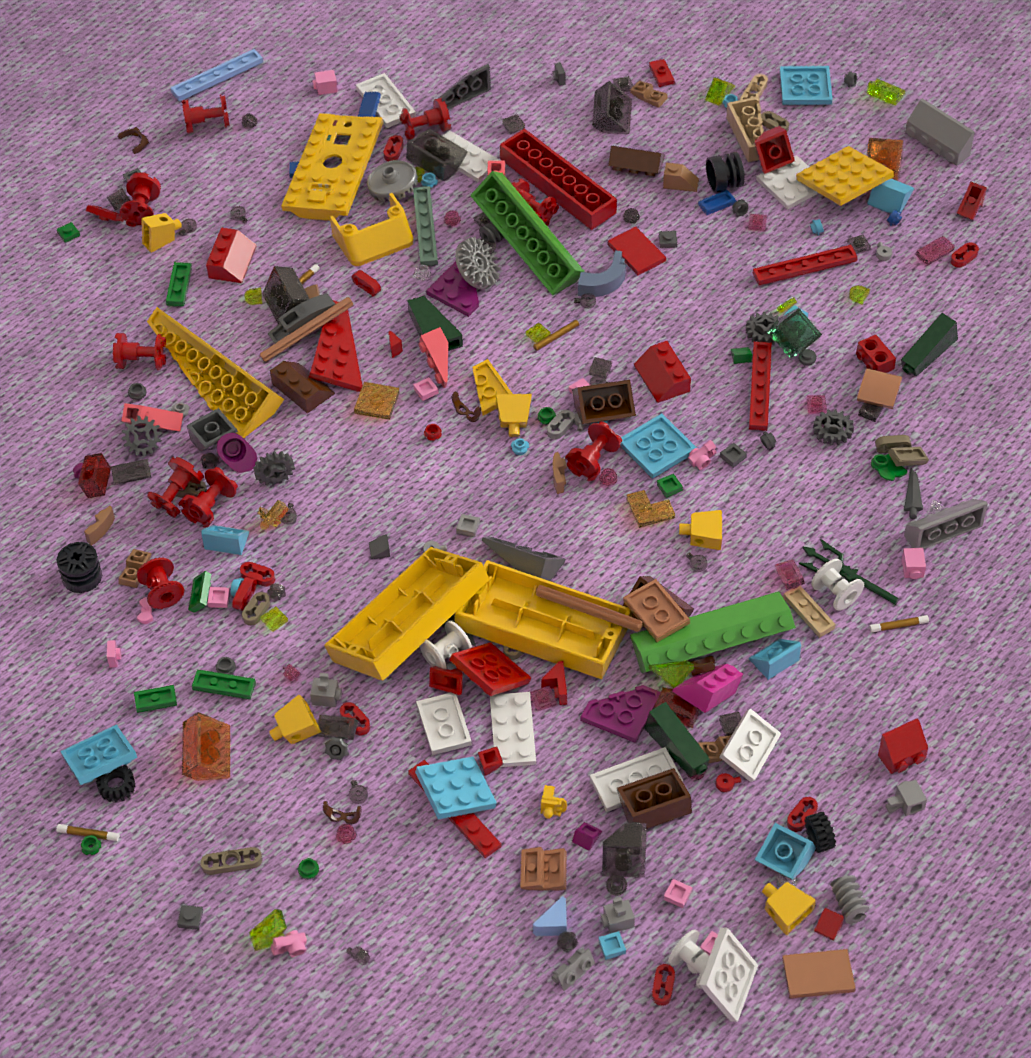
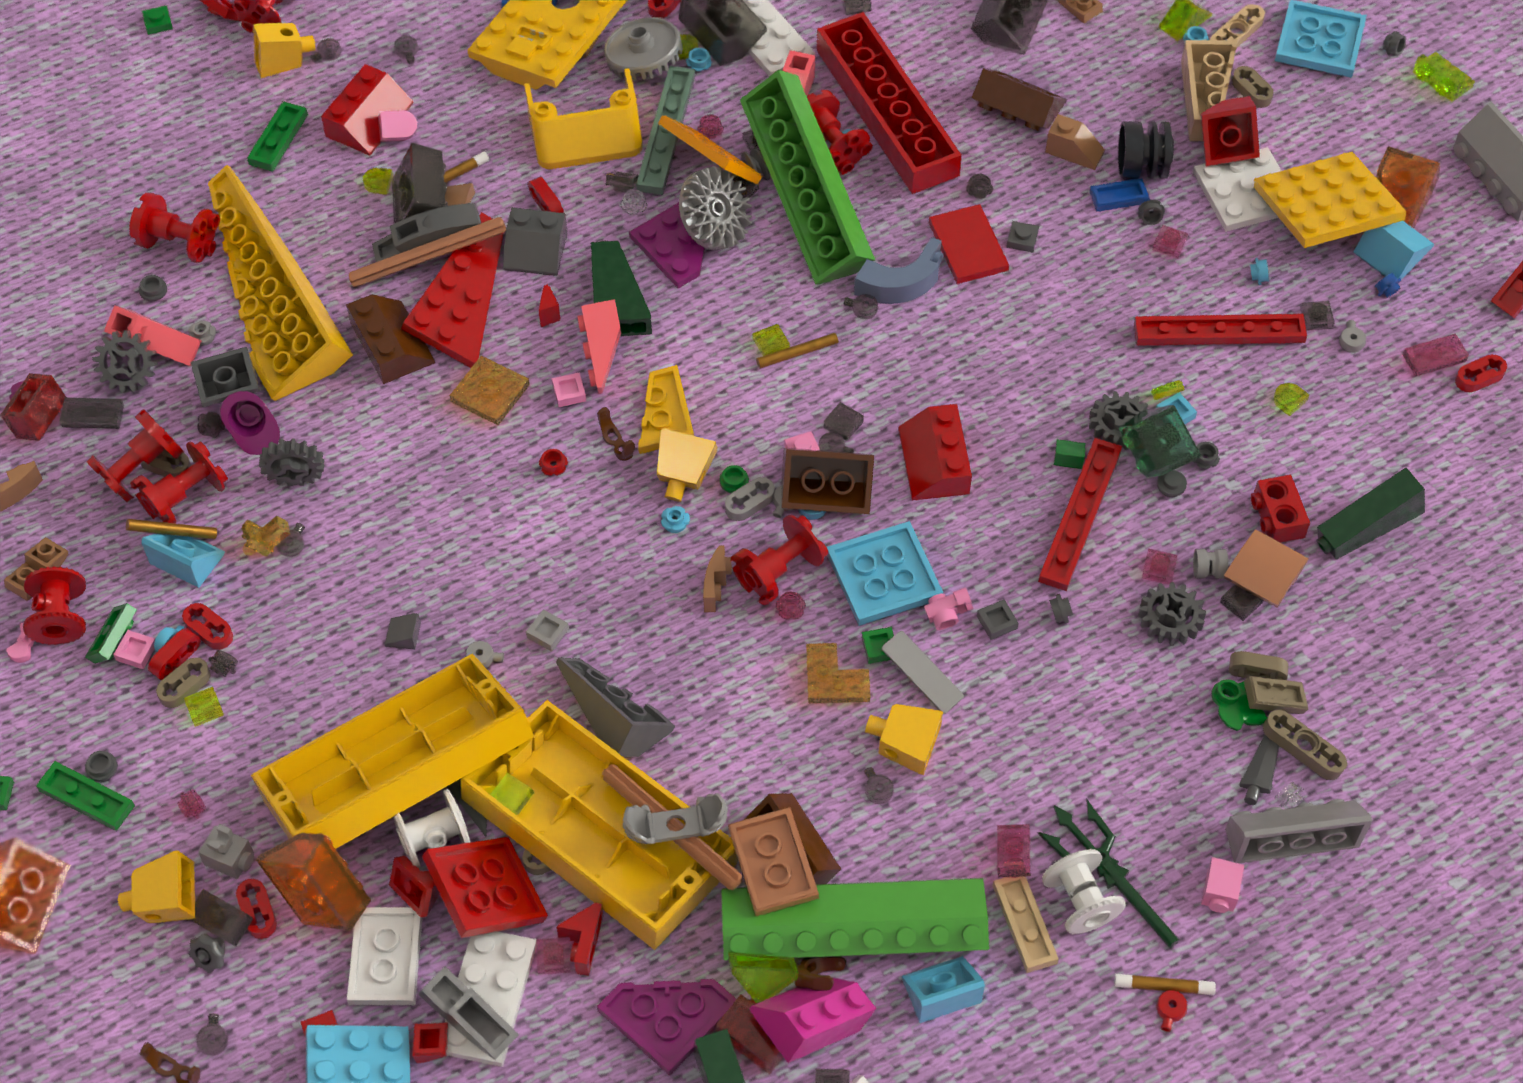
camera: 15 degrees right, 5 degrees up
(213, 523) = (171, 529): none -> pearl gold bar
(254, 260) = (396, 125): none -> bright pink piece
(370, 308) = (534, 241): none -> dark grey slope
(391, 689) = (315, 881): none -> clear orange slope
(410, 262) = (621, 180): none -> clear smoke plate
(460, 229) = (710, 149): none -> light orange tile
(487, 613) = (512, 793): none -> clear neon green tile
(508, 737) = (468, 1013): none -> flat silver slope
(608, 597) = (651, 828): none -> light grey piece
(699, 493) = (922, 672): none -> light grey piece
(825, 338) = (1211, 452): none -> dark grey plate
(845, 395) = (1210, 563): none -> light grey wheel
(907, 635) = (1168, 1013): none -> red piece
(937, 485) = (1308, 758): none -> dark tan beam

